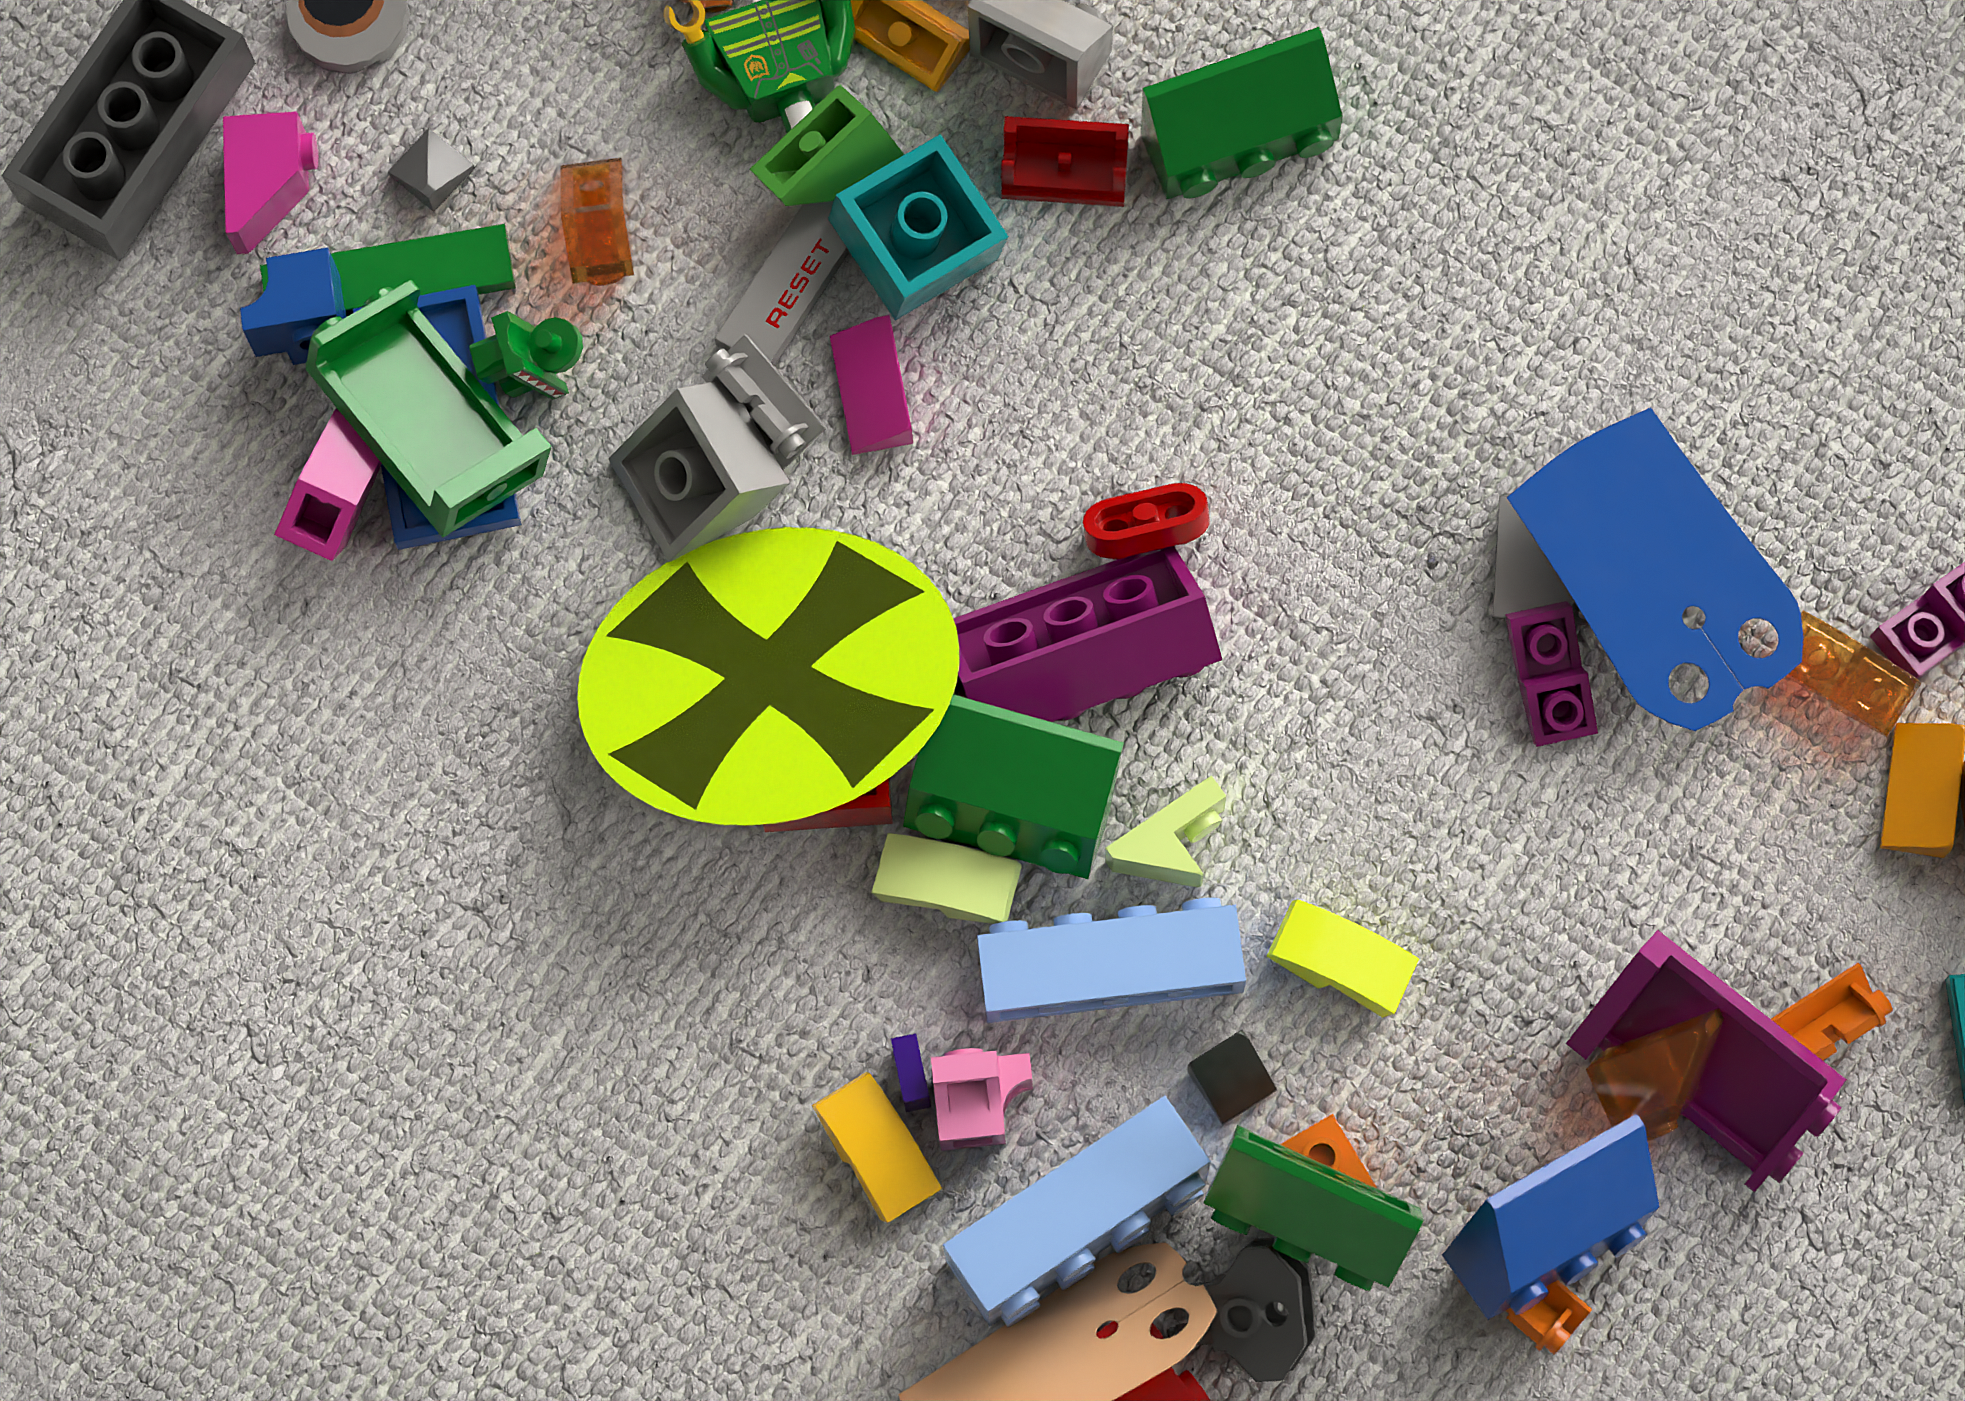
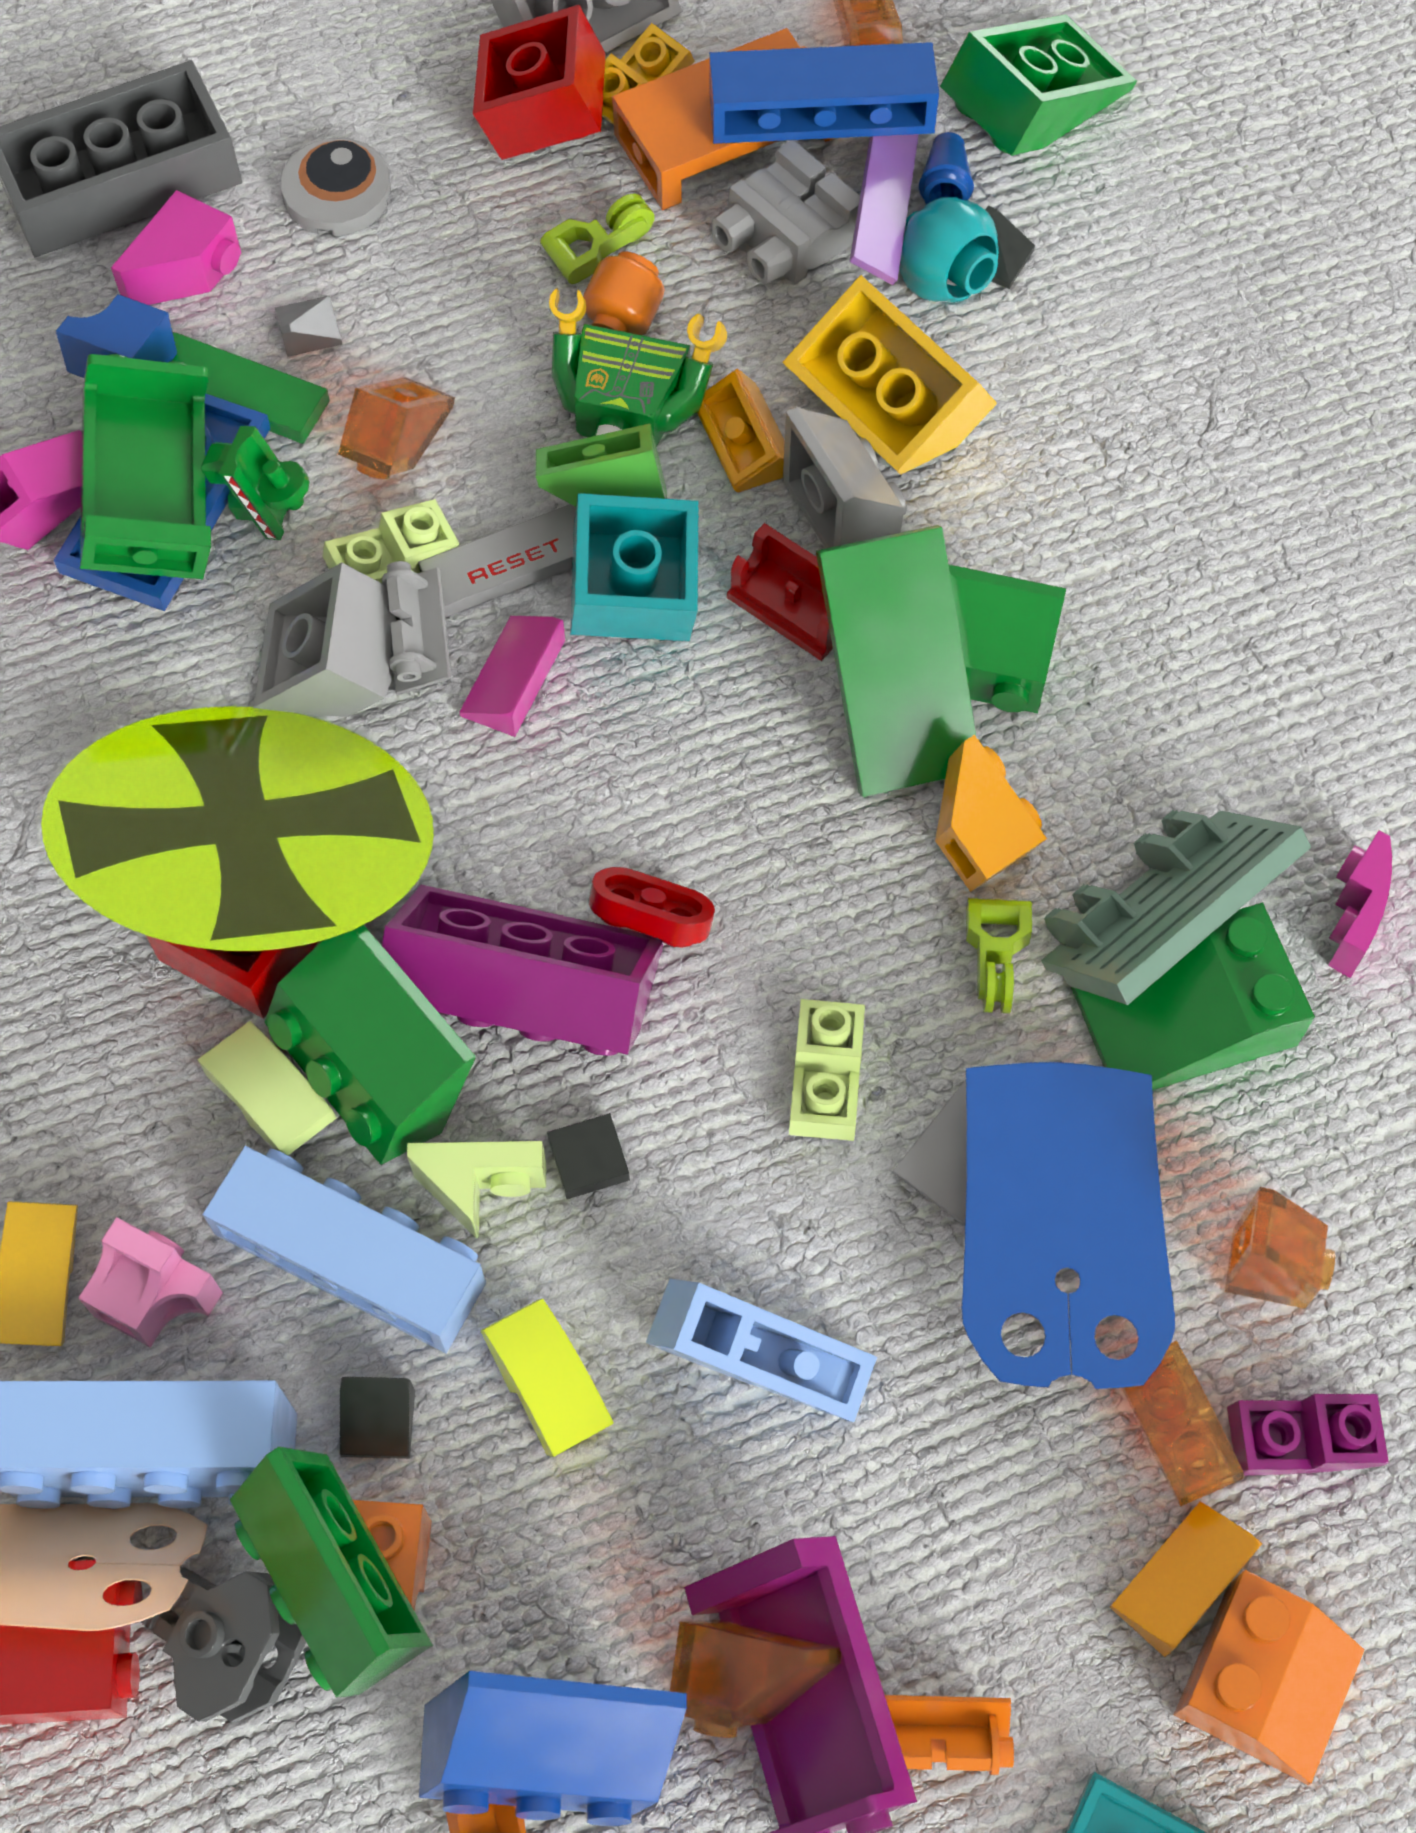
camera: 30 degrees right, 10 degrees down
(678, 339) = (402, 535): none -> yellowish green slope
(910, 1072) = (111, 1204): dark purple tile -> none
(1214, 175) = (897, 657): none -> tile
(1243, 762) = (588, 1156): none -> pearl dark grey tile
(1367, 271) = (982, 818): none -> light orange slope
(1382, 566) = (827, 1070): none -> yellowish green slope
(1468, 409) = (991, 950): none -> lime piece
(1490, 826) = (760, 1348): none -> light blue slope
(1551, 673) = (909, 1252): magenta slope -> none
(1577, 260) = (1200, 881): none -> sand green hinge
(1638, 319) = (1209, 1011): none -> green slope
(1717, 138) = (1364, 901): none -> dark pink slope
(1837, 490) = (1279, 1252): none -> clear orange slope

